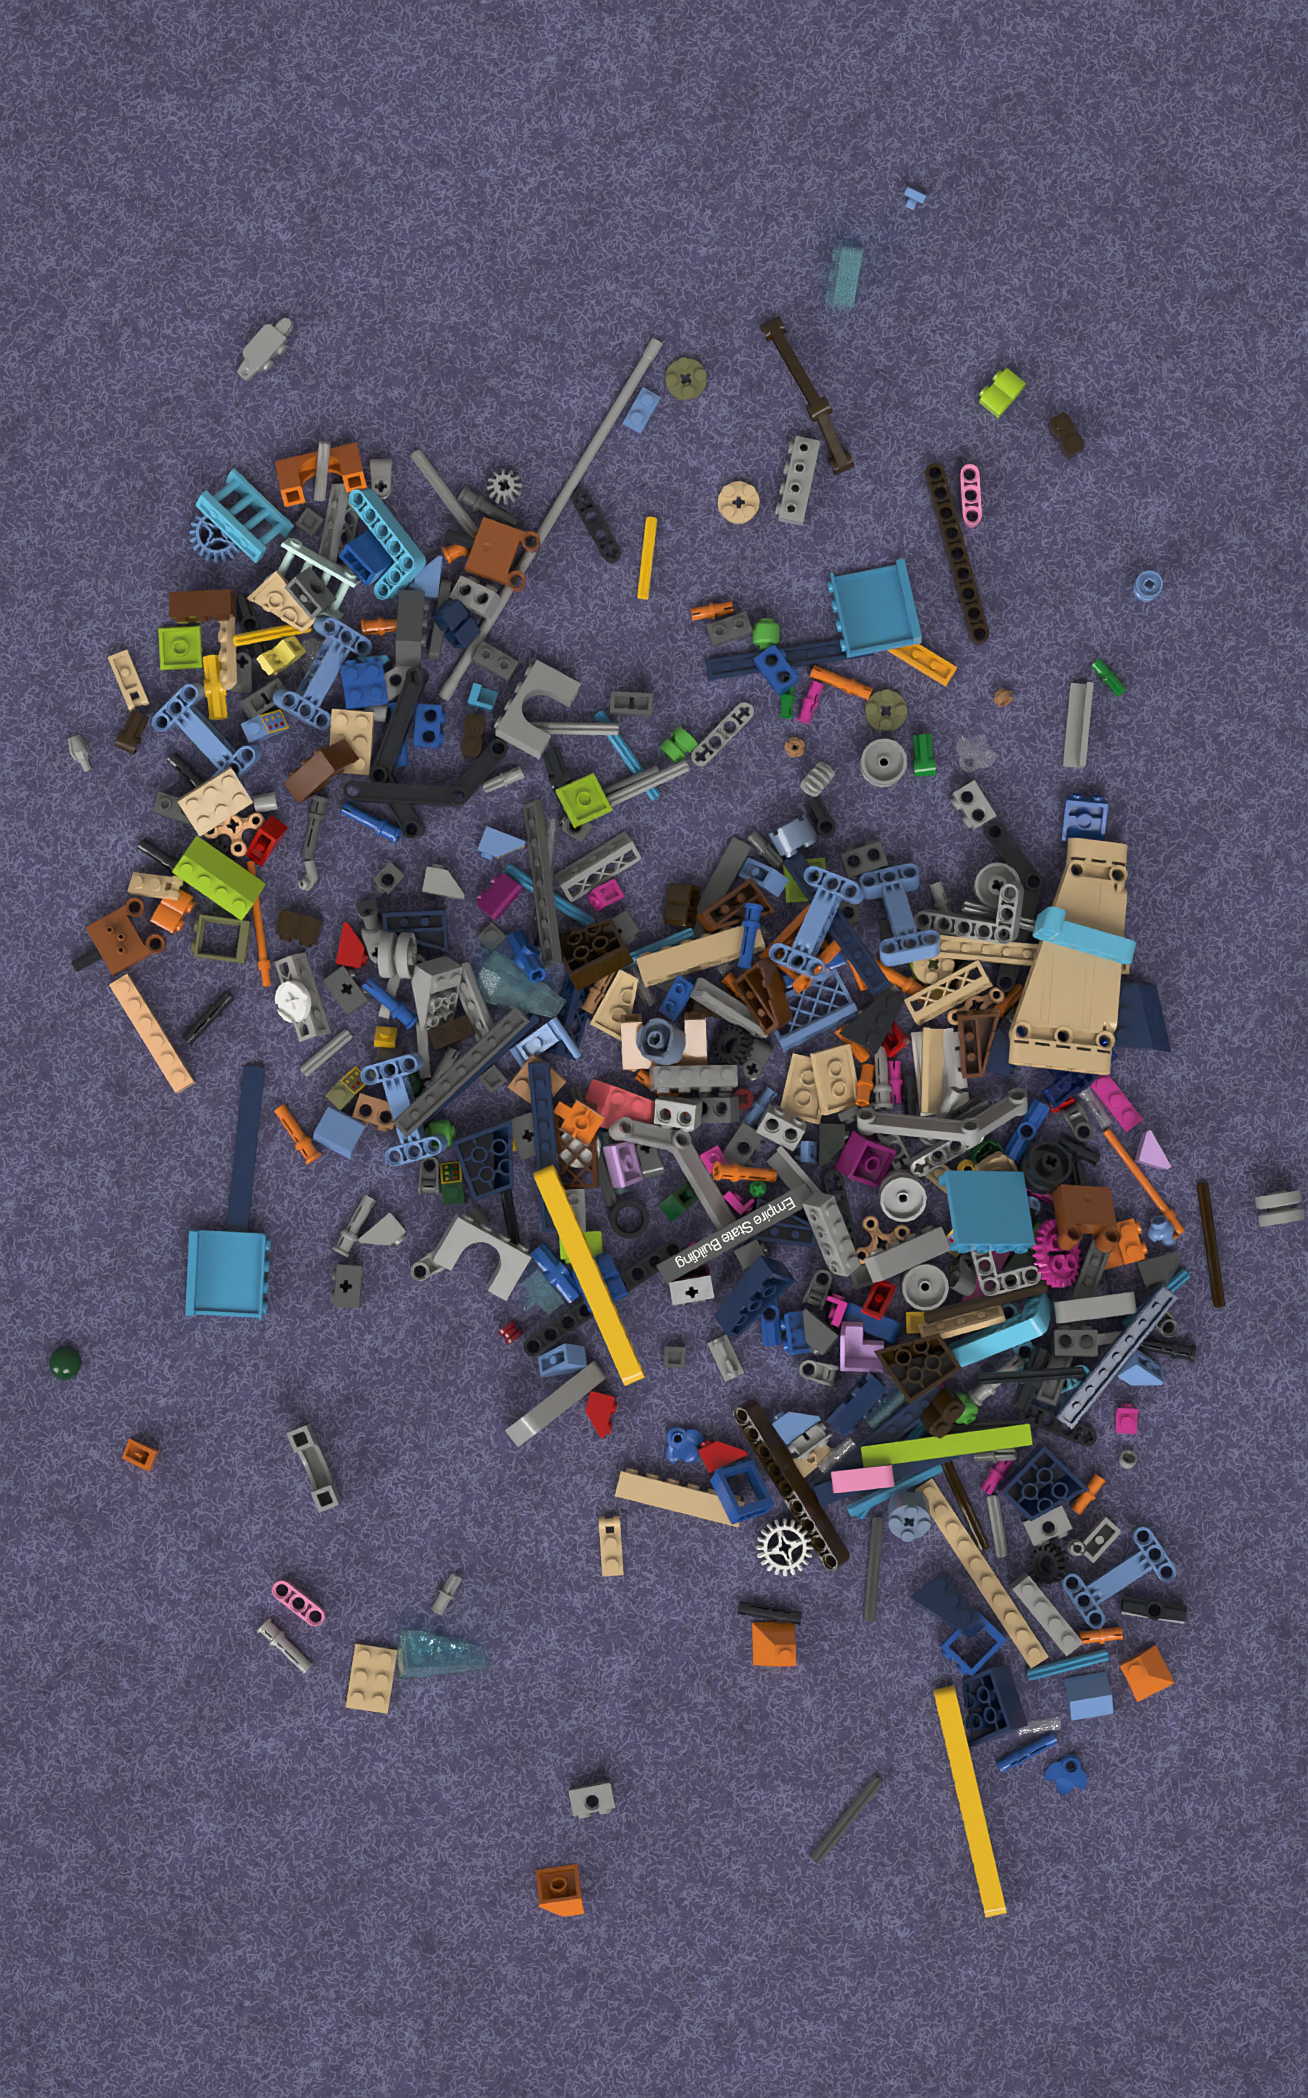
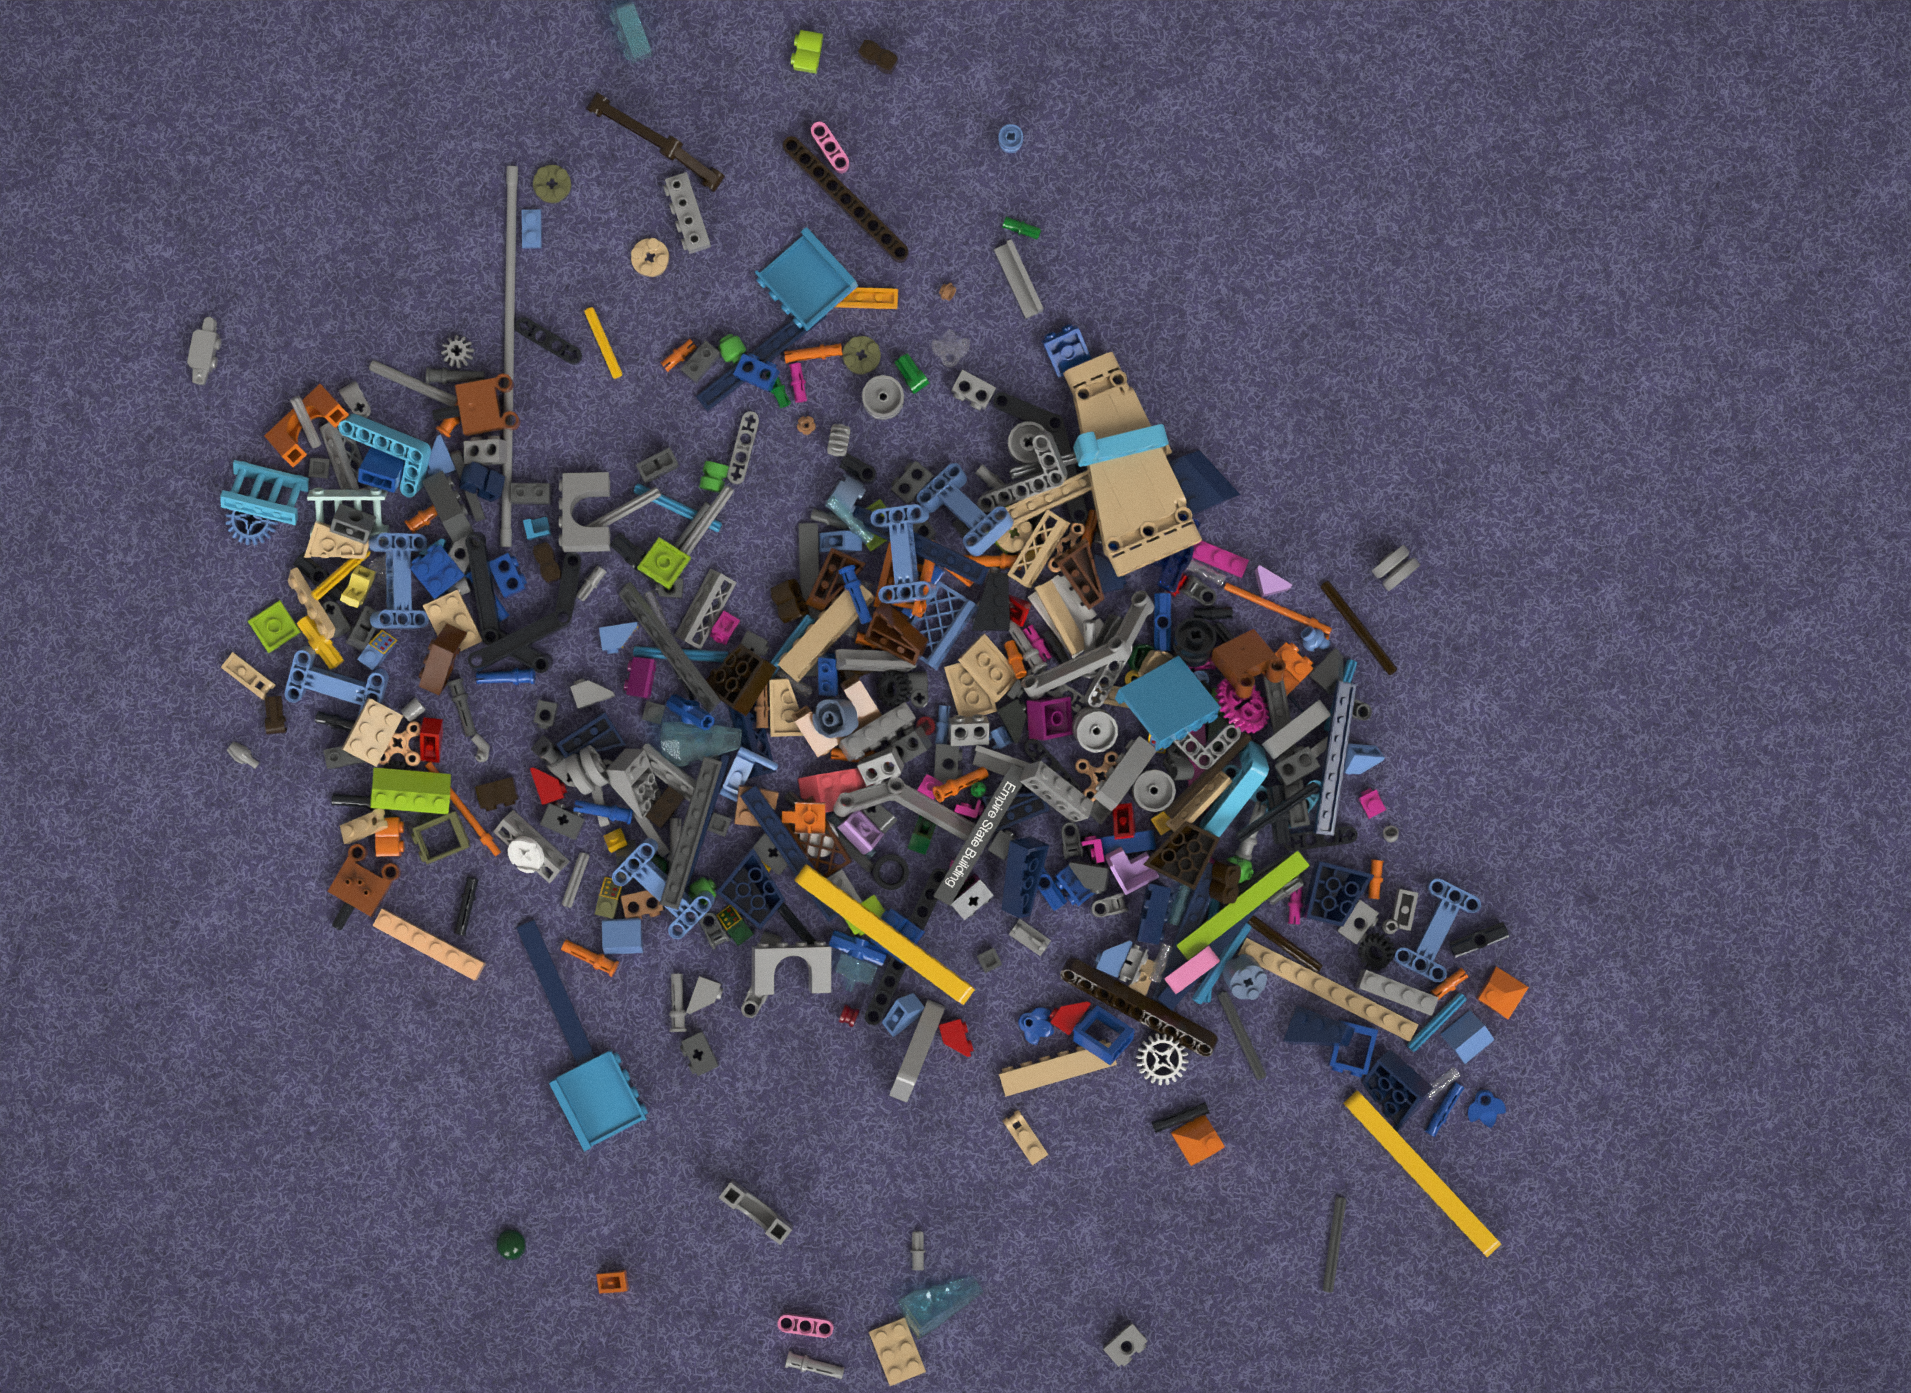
camera: 35 degrees left, 0 degrees up
(202, 605) = (272, 583): reddish brown wedge -> none
(786, 869) = (856, 526): none -> clear light blue pin
(858, 1051) = (995, 636): orange axle -> none
(997, 1526) = (1319, 946): light grey axle -> none
(1173, 1349) = (1378, 726): black pin -> none

